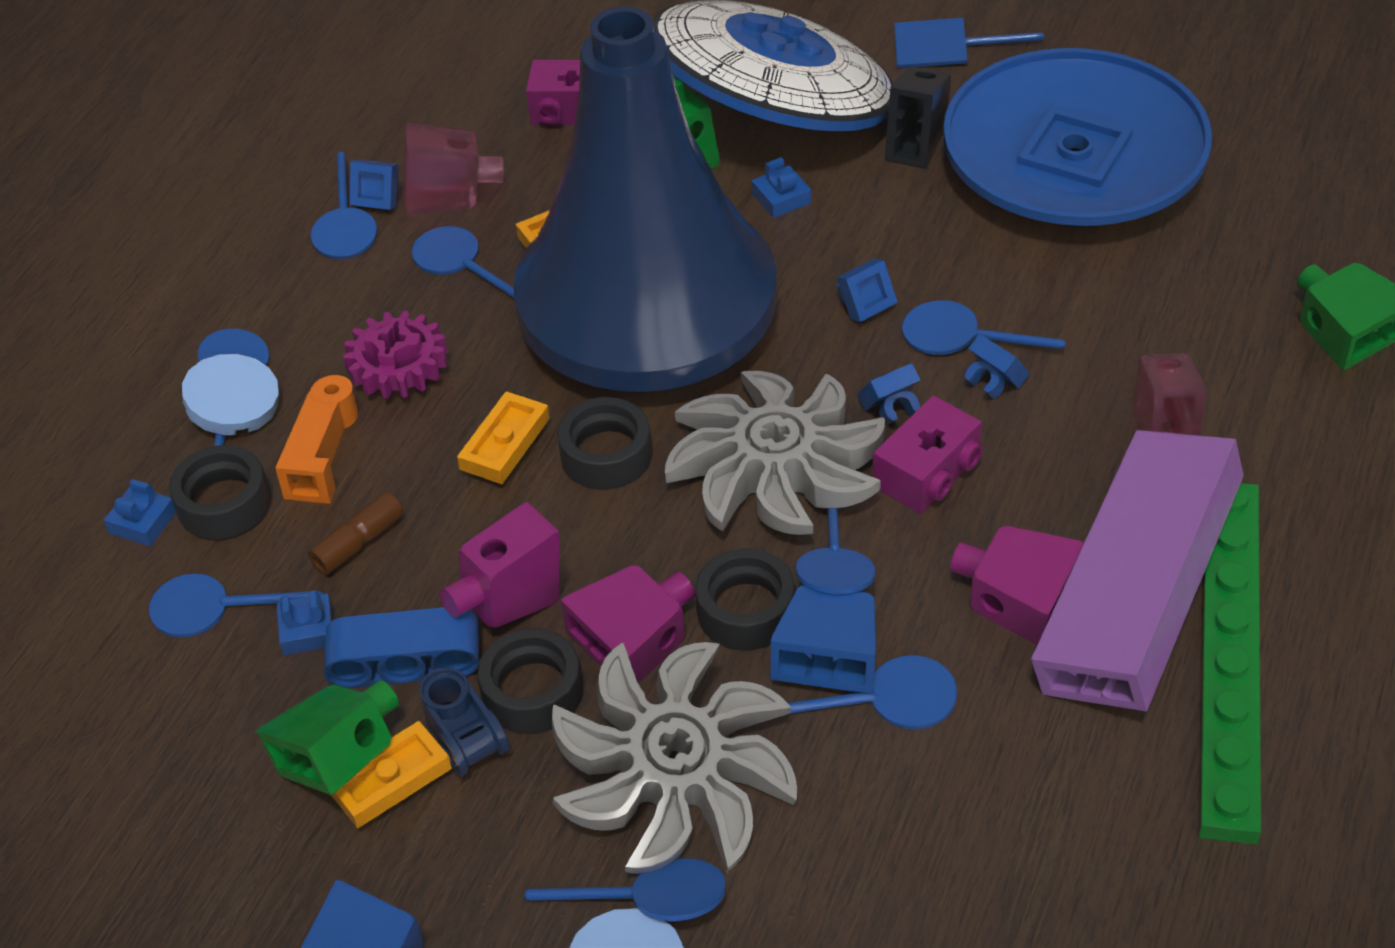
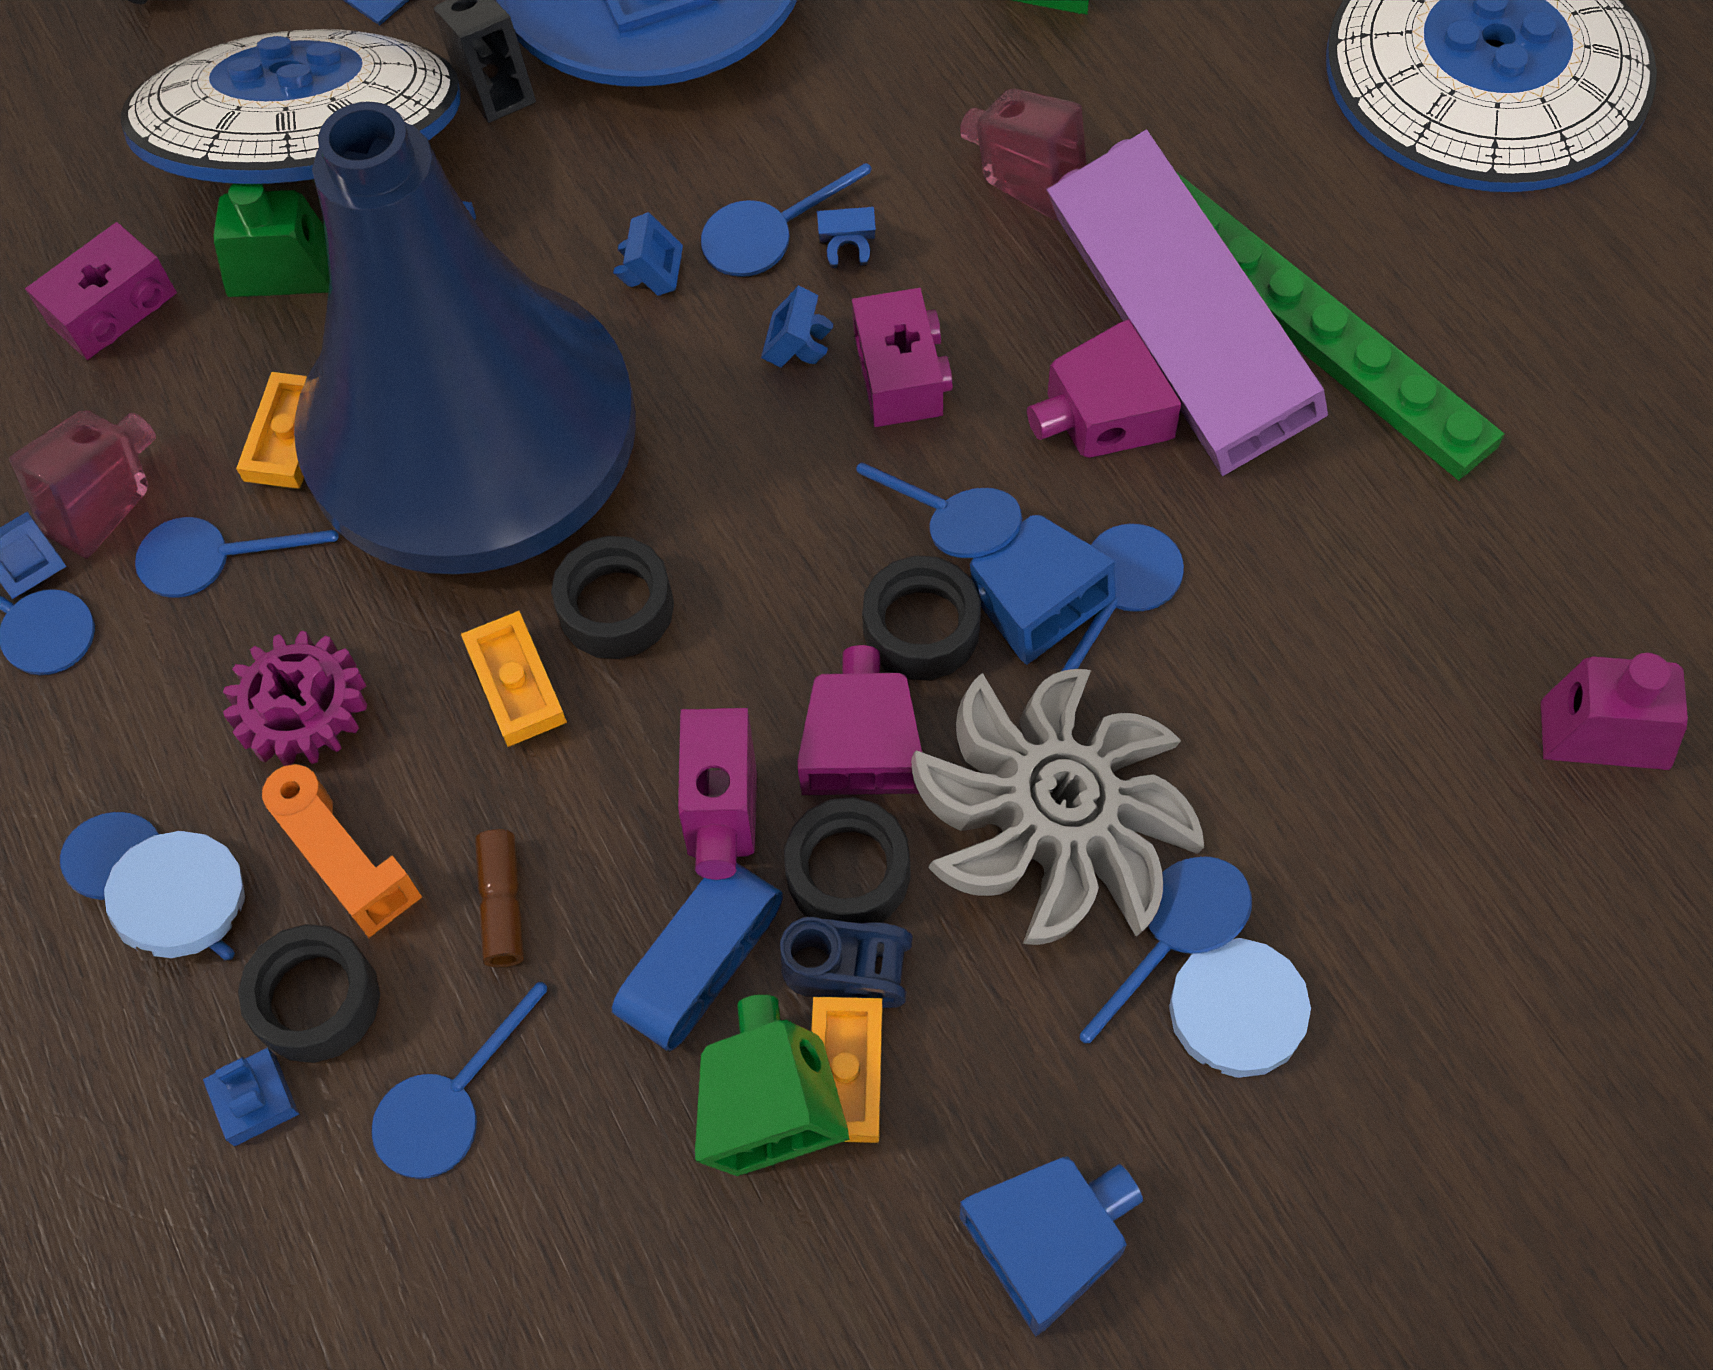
camera: 50 degrees left, 15 degrees up
(303, 622) = (570, 1024): blue tile -> none
(775, 452) = (771, 468): light grey piece -> none

